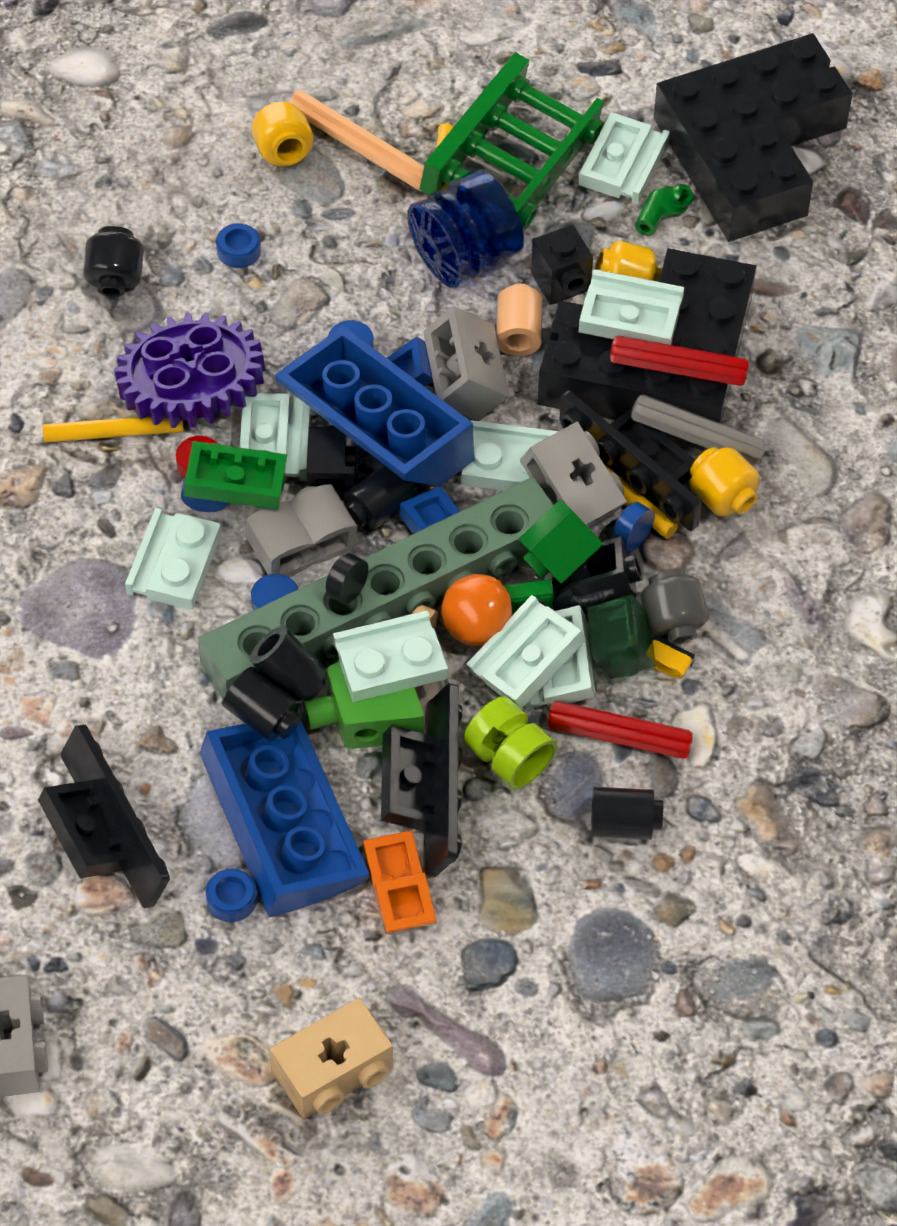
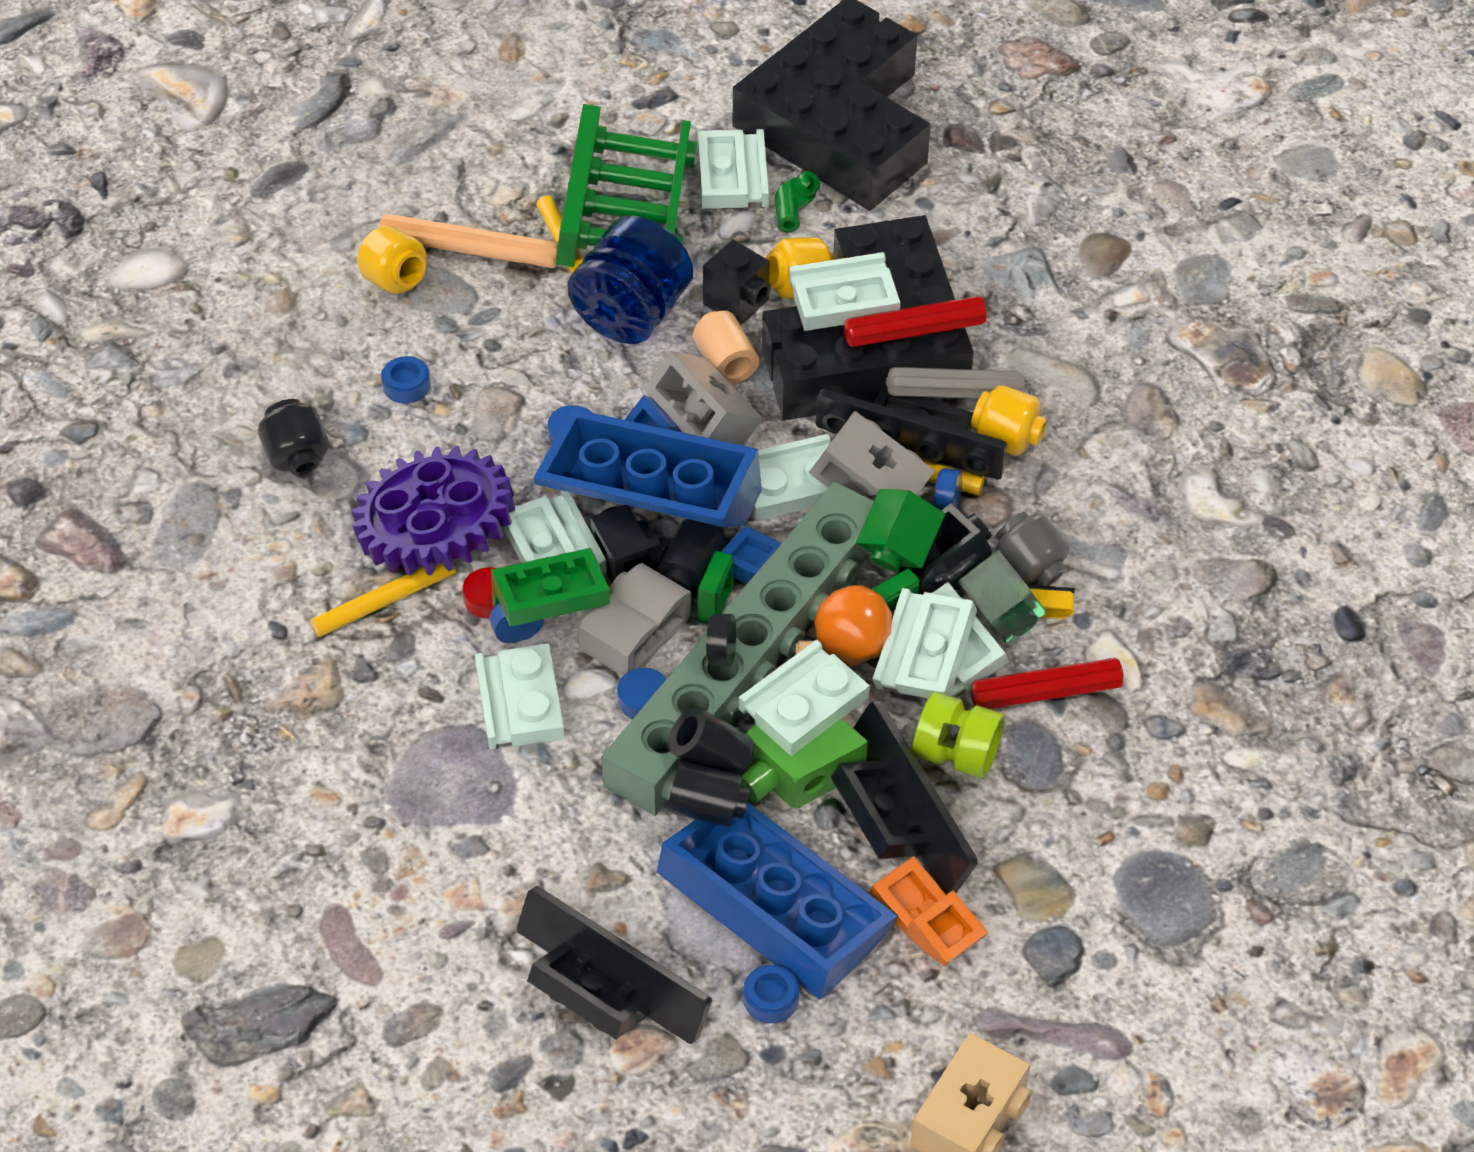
camera: 25 degrees left, 5 degrees down
(384, 528) = (716, 586): none -> green tile
(625, 813) = (1102, 757): black brick -> none

